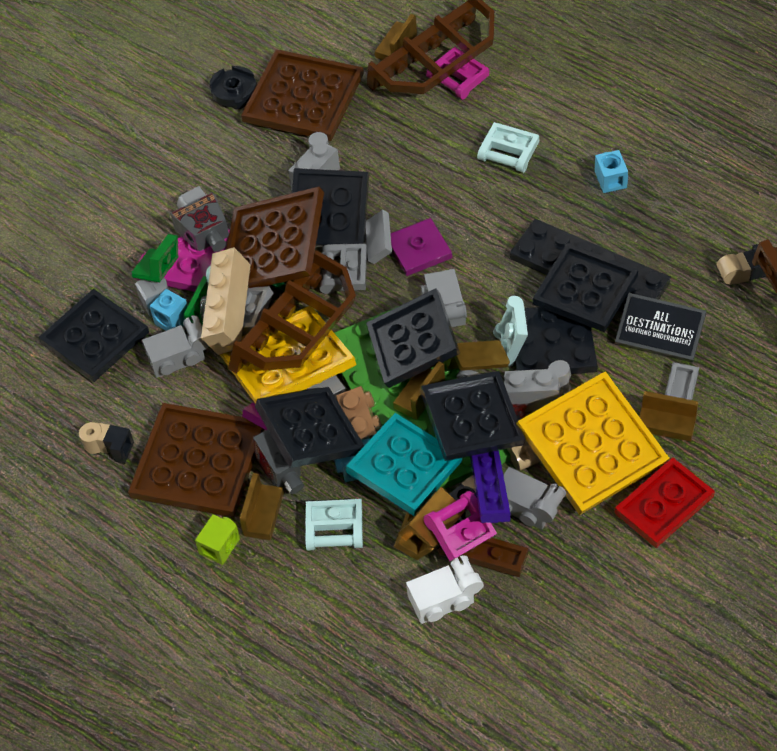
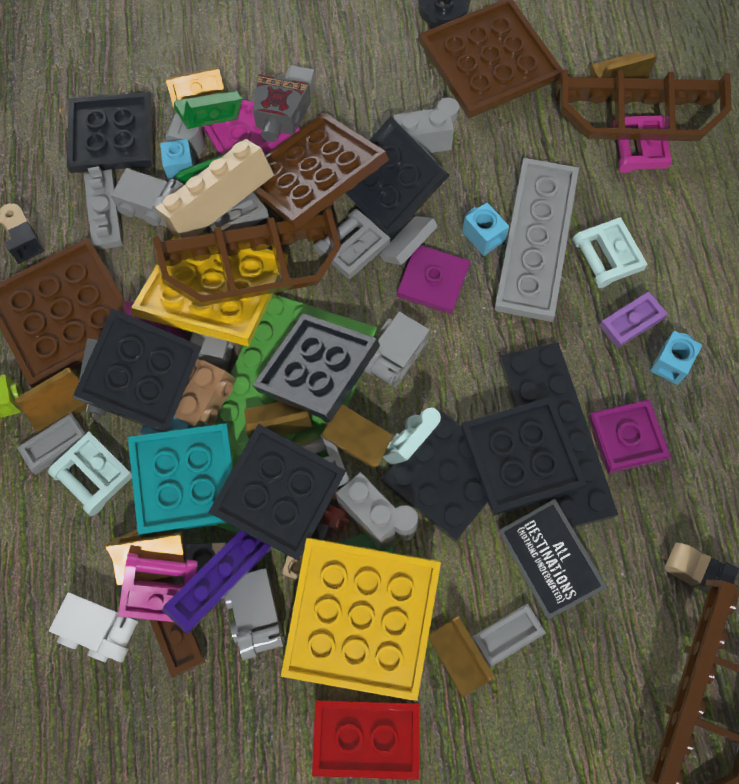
camera: 40 degrees right, 15 degrees up
(119, 261) = (195, 84): none -> panel
(145, 382) = (102, 210): none -> light grey plate
(286, 534) = (51, 443): none -> light grey tile
(418, 192) = (485, 239): none -> medium azure brick
(457, 174) = (537, 240): none -> light grey plate
(564, 171) = (633, 319): none -> medium lavender plate
(631, 233) = (629, 436): none -> magenta plate

